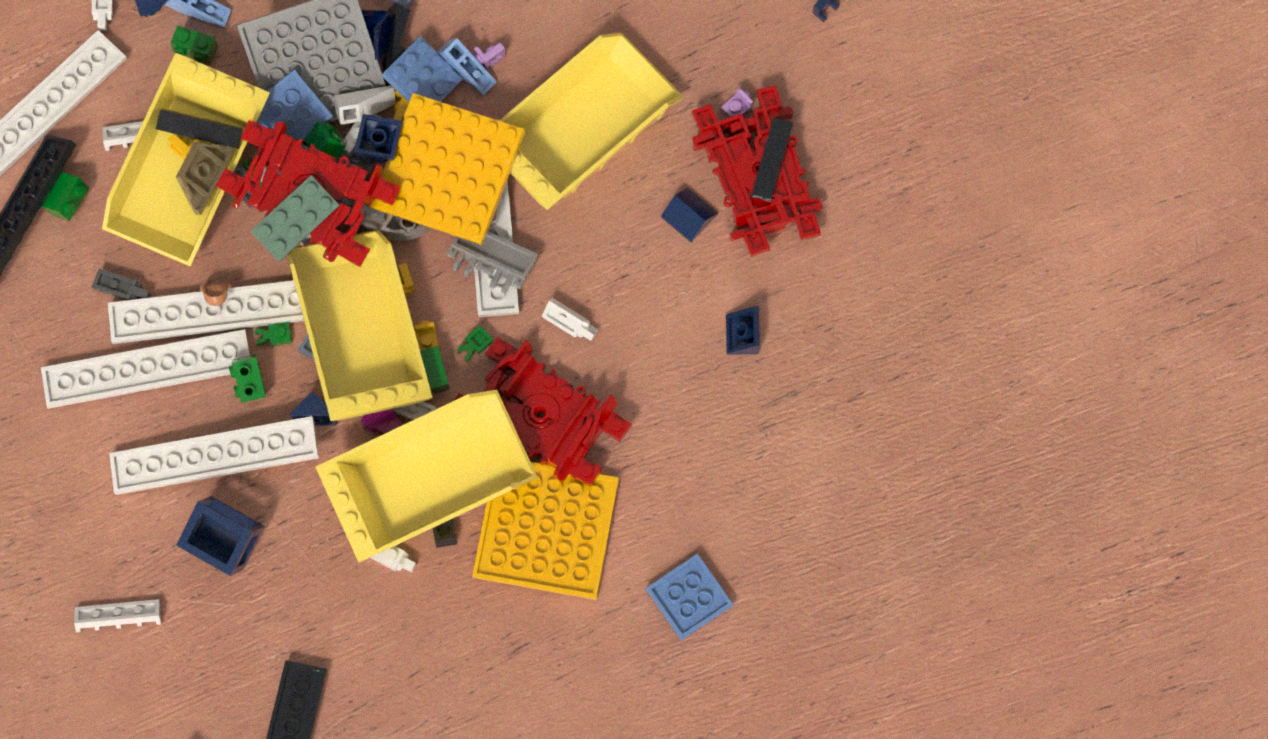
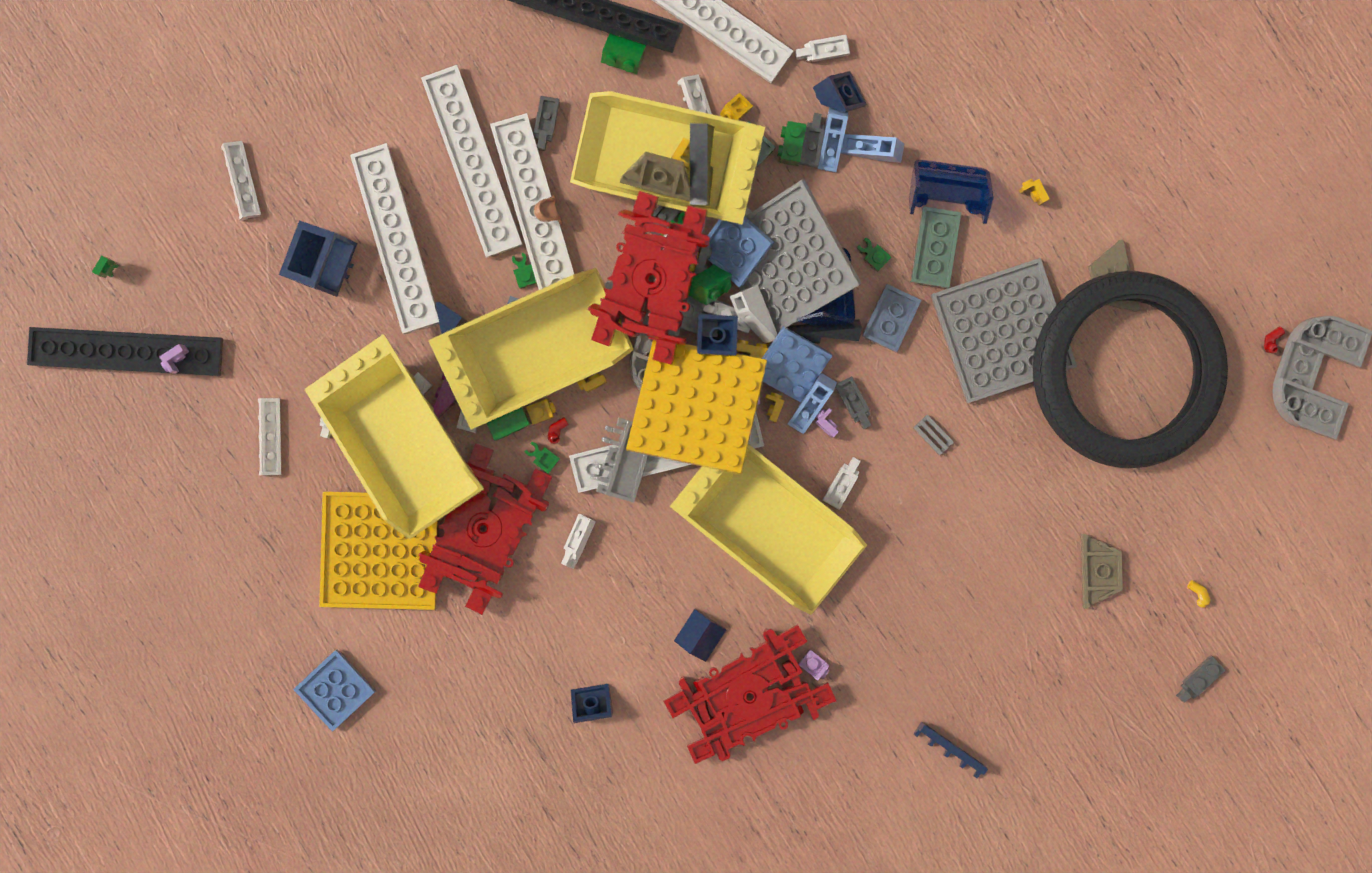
camera: 80 degrees right, 15 degrees up
(144, 93) = (736, 107): none -> yellow bracket
(196, 23) = (812, 142): none -> dark grey hinge
(248, 378) = (473, 255): green brick -> none
(295, 218) = (620, 271): sand green plate -> none
(295, 706) = (173, 355): none -> lavender bracket
(402, 625) = (269, 436): none -> white hinge
(447, 327) = (555, 429): none -> red arm
(465, 102) = (774, 410): none -> yellow bracket
(473, 25) = (854, 401): none -> dark grey hinge
(552, 47) = (842, 484): none -> white hinge
(772, 159) = (757, 709): black slope -> none

